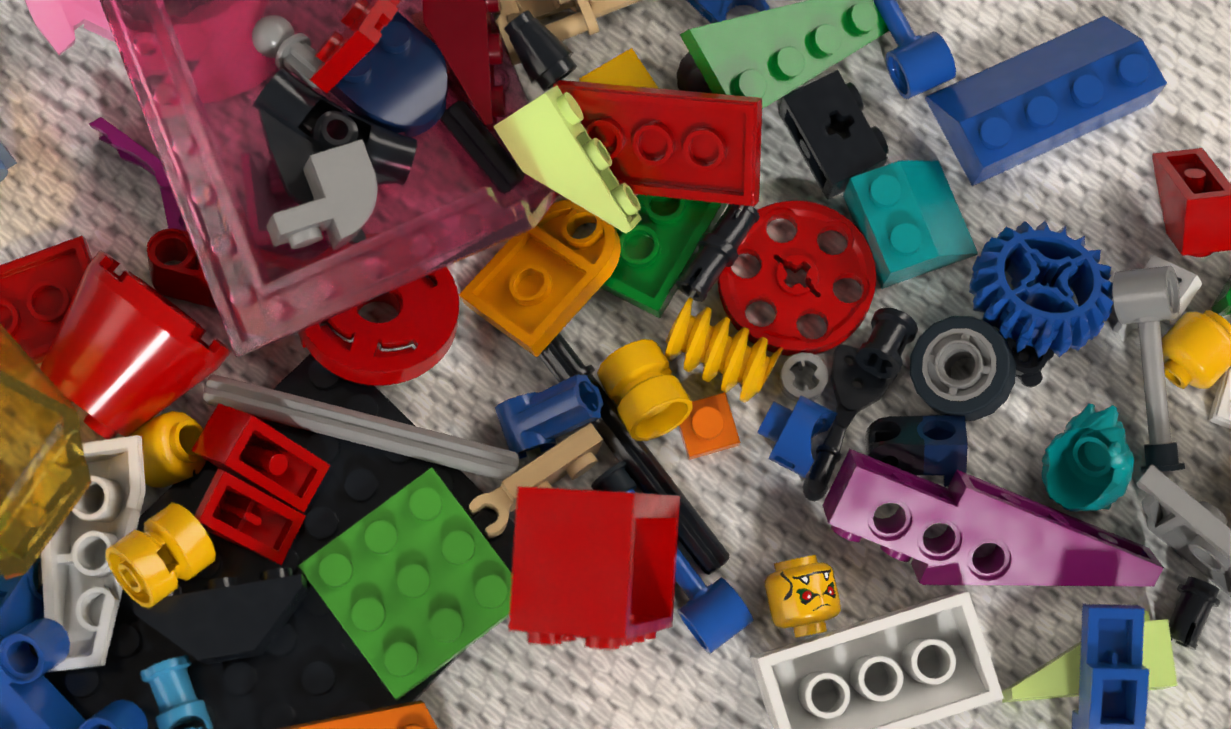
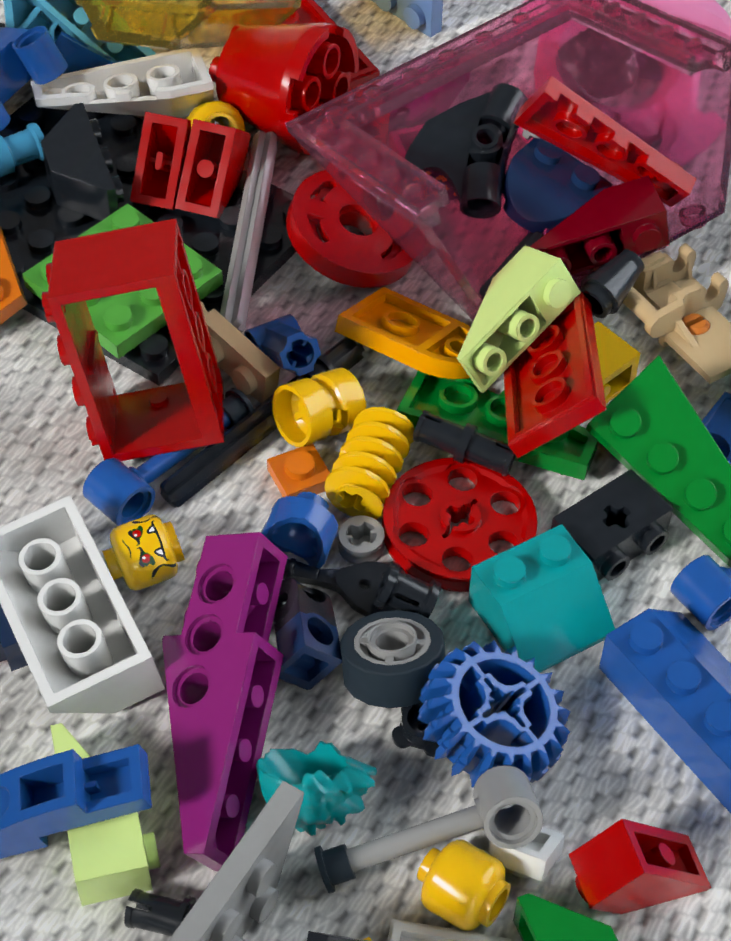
camera: 85 degrees right, 25 degrees down
(153, 560) = (112, 98): yellow wheel -> none
(343, 196) = (432, 142): light grey brick -> none

